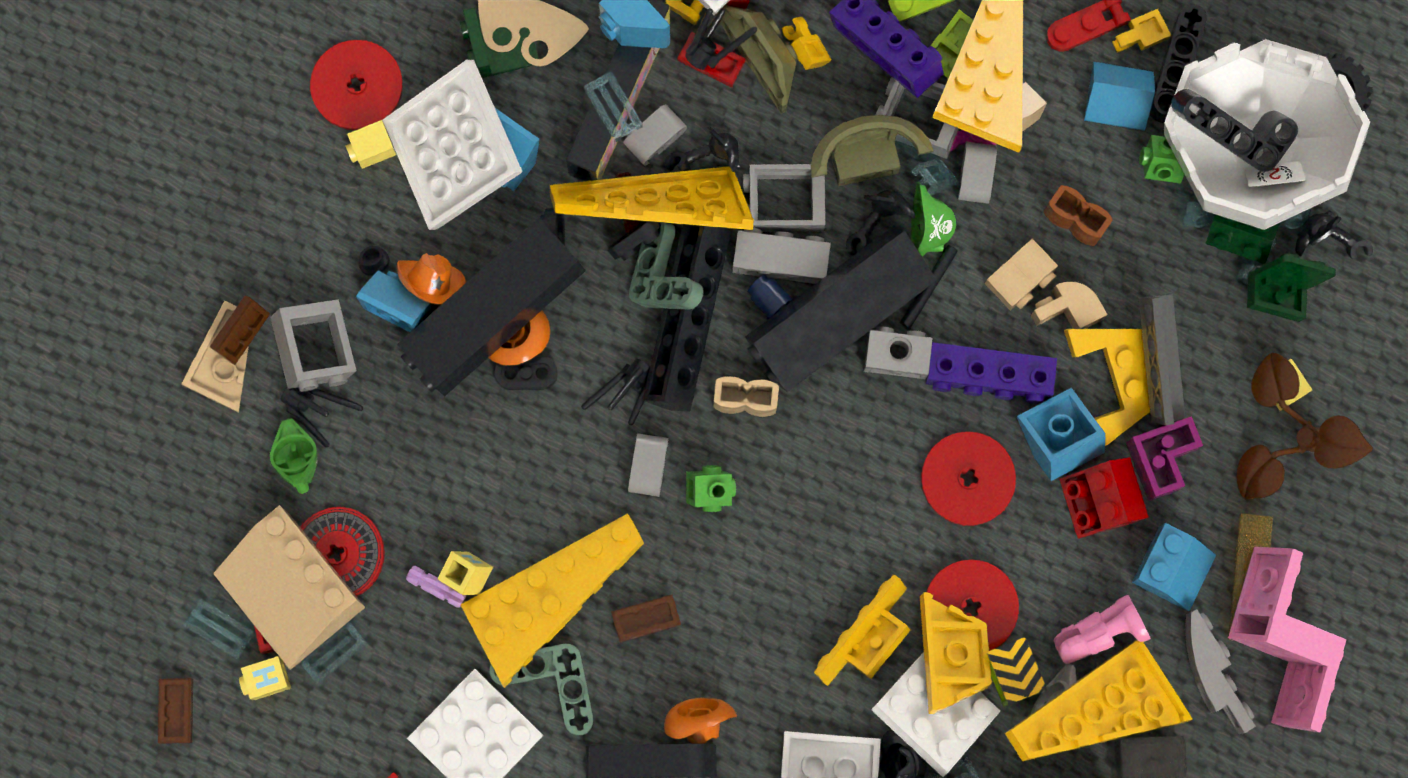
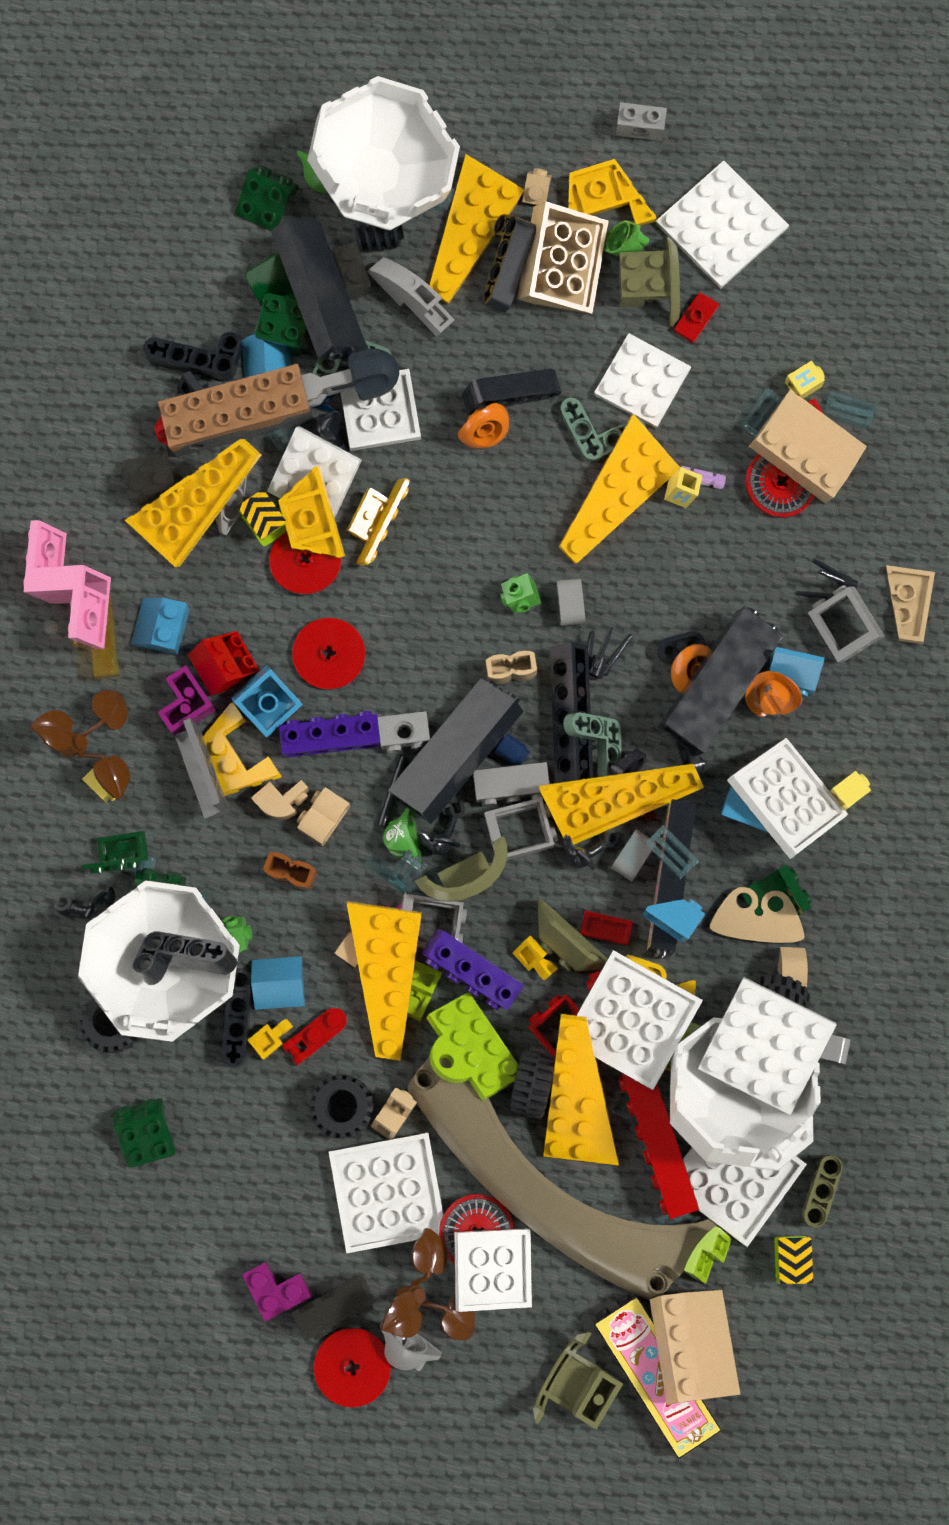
camera: 170 degrees right, 0 degrees up
(175, 710) = (862, 344): reddish brown plate -> none
(239, 330) = (904, 619): reddish brown plate -> none
(294, 455) = (834, 538): bright green hat -> none
(344, 105) = (877, 818): red piece -> none
(373, 260) = (820, 702): black plate -> none
(646, 618) = (542, 492): reddish brown plate -> none
(702, 49) = (614, 926): black plant -> none
(977, 172) = (376, 885): light grey beam -> none
(1096, 631) = (209, 558): bright pink piece -> none
(1207, 661) = (120, 561): light grey slope -> none
(1280, 174) = (133, 937): white sticker -> none

